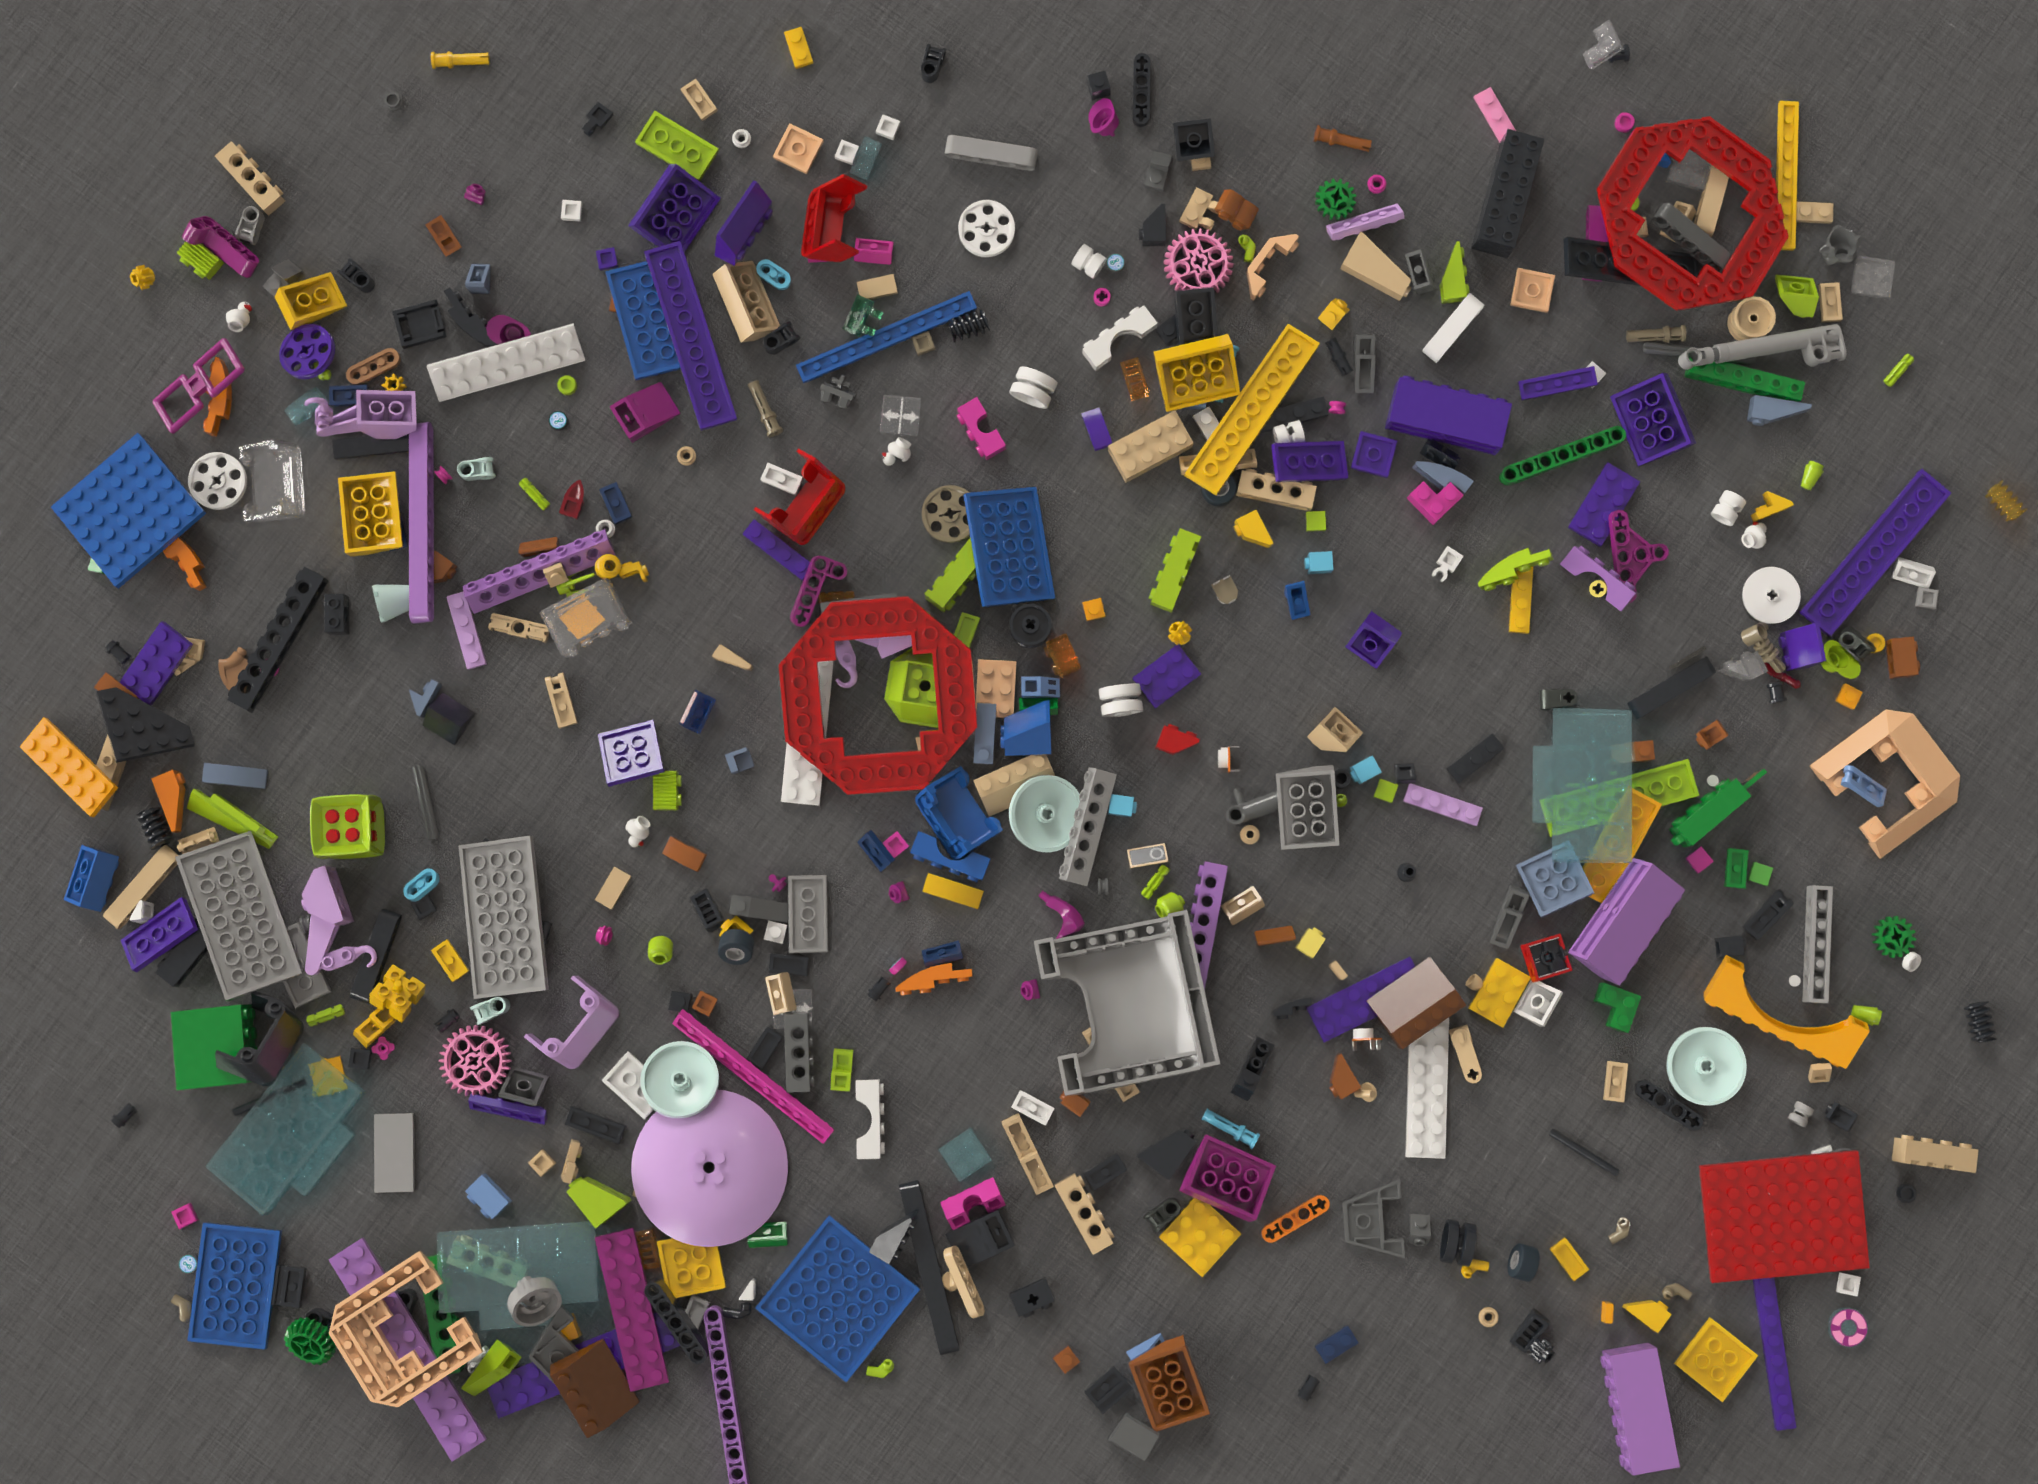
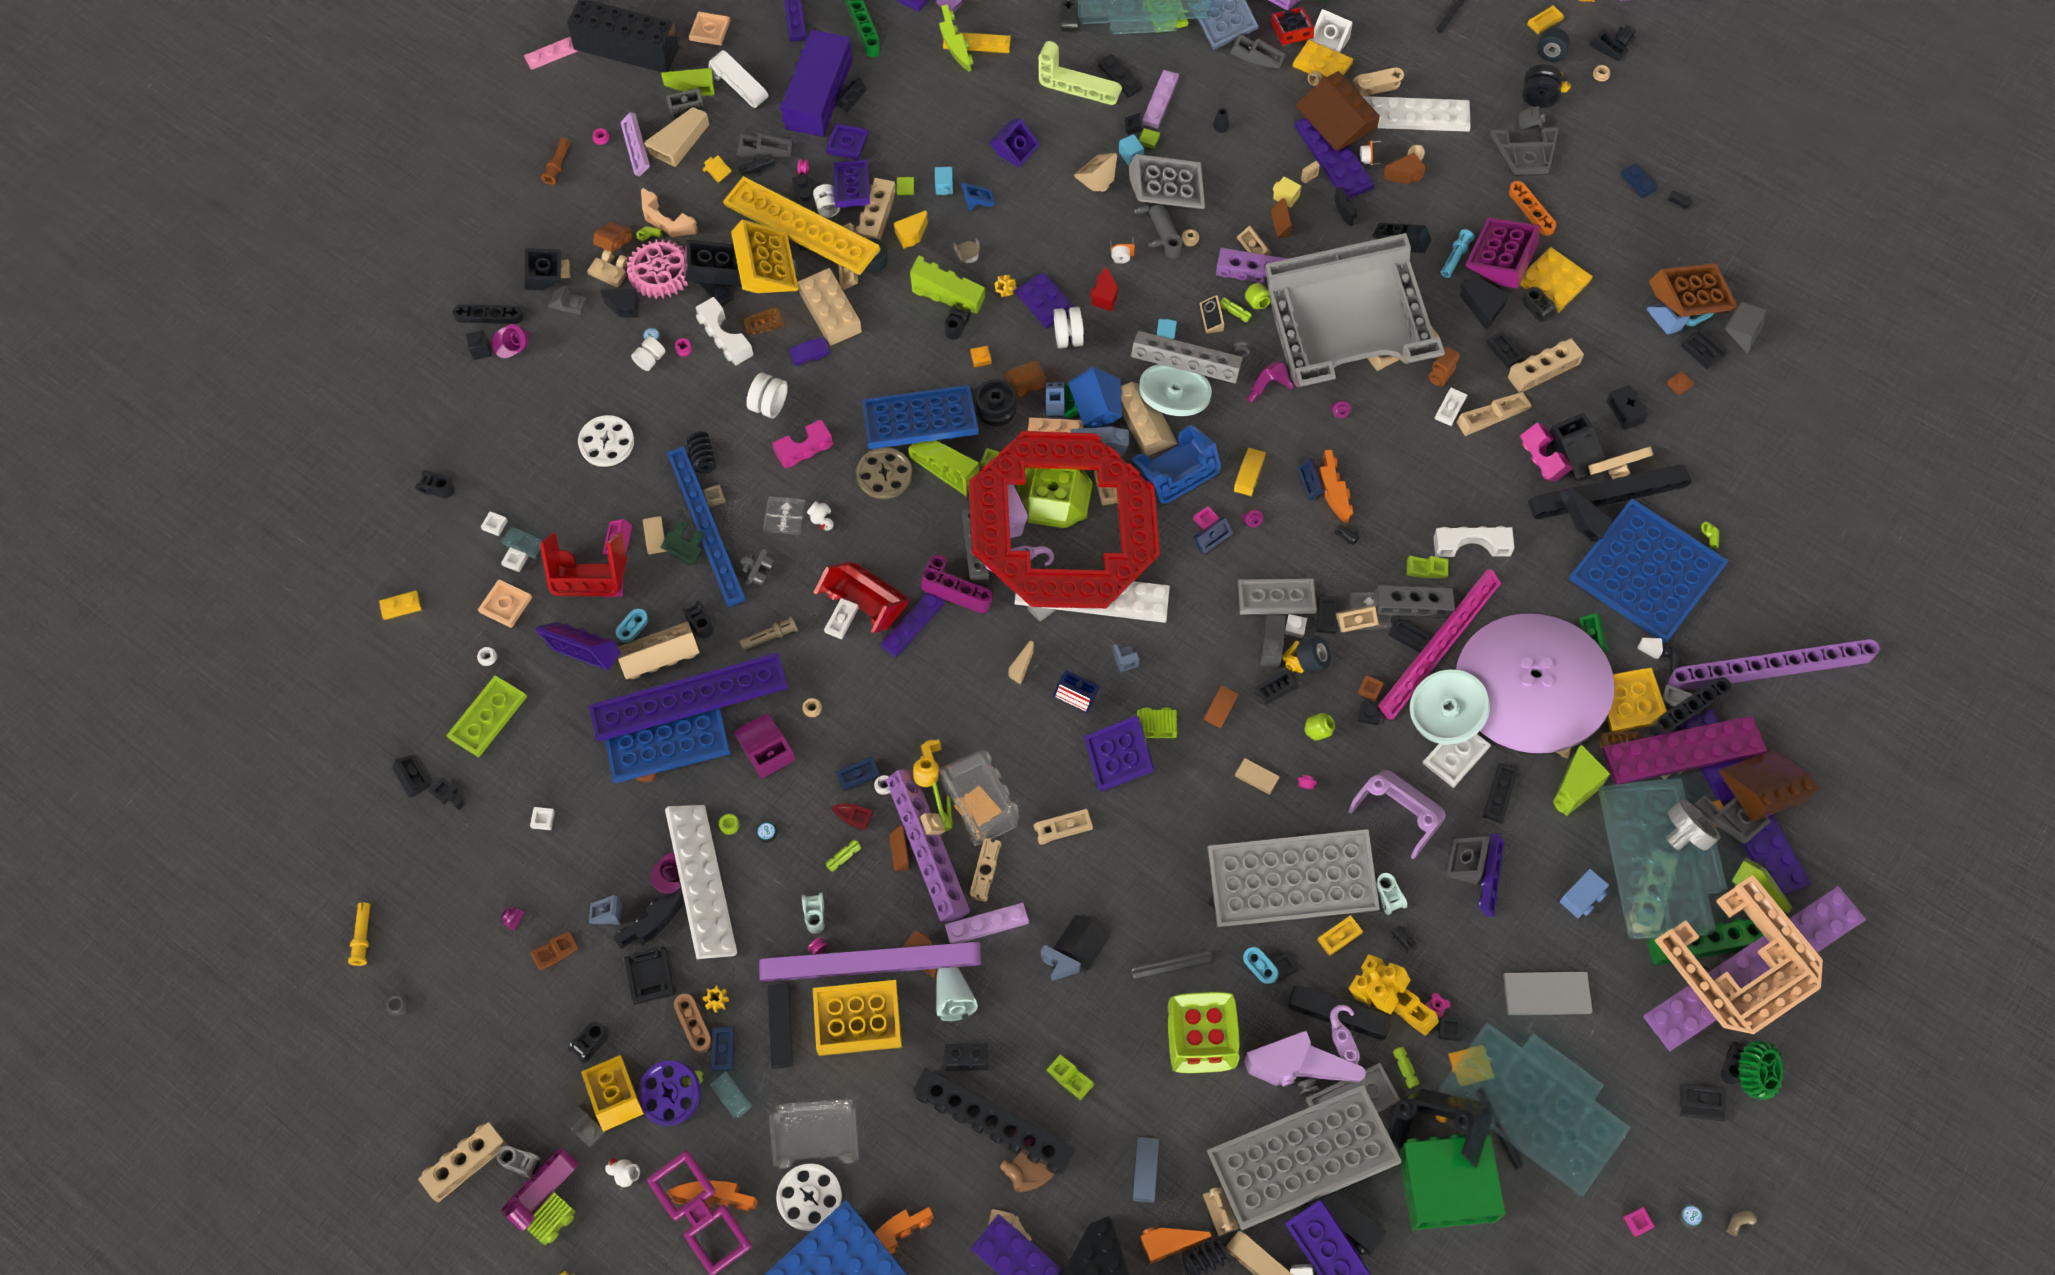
camera: 90 degrees left, 20 degrees down
(229, 816) = (1190, 1178): lime wedge -> none
(234, 1285) = (1709, 1162): blue plate -> none
(320, 709) = (1070, 1077): none -> lime slope
(375, 414) = (747, 1003): lavender slope -> none
(455, 1046) = (1444, 916): bright pink gear -> none
(542, 1163) = (1543, 844): tan tile -> none
(570, 1169) = (1546, 813): tan plate -> none
(607, 258) = (598, 783): dark purple plate -> none
(618, 83) = (410, 775): none -> black slope
(638, 829) = (1198, 748): white animal -> none
(674, 209) = (552, 718): dark purple slope -> none
(699, 99) = (440, 695): tan plate -> none
(779, 885) = (1247, 620): magenta plate -> none
(835, 596) = (962, 566): clear orange axle -> none
(898, 966) = (1324, 517): dark pink tile -> none
(965, 1154) = (1499, 464): clear light blue plate -> none
(973, 865) = (1209, 490): blue arch -> none
(991, 152) = (531, 435): light grey beam -> none
(1136, 583) = (956, 322): none -> black piece
(1206, 422) = (813, 265): white plate -> none
(1342, 200) = (611, 165): green gear -> none
(1434, 505) = (893, 97): dark pink brick -> none
(1443, 475) = (871, 90): sand blue slope -> none
(1448, 562) = (947, 89): white plate -> none
(1470, 679) = (1072, 81): none -> yellowish green beam

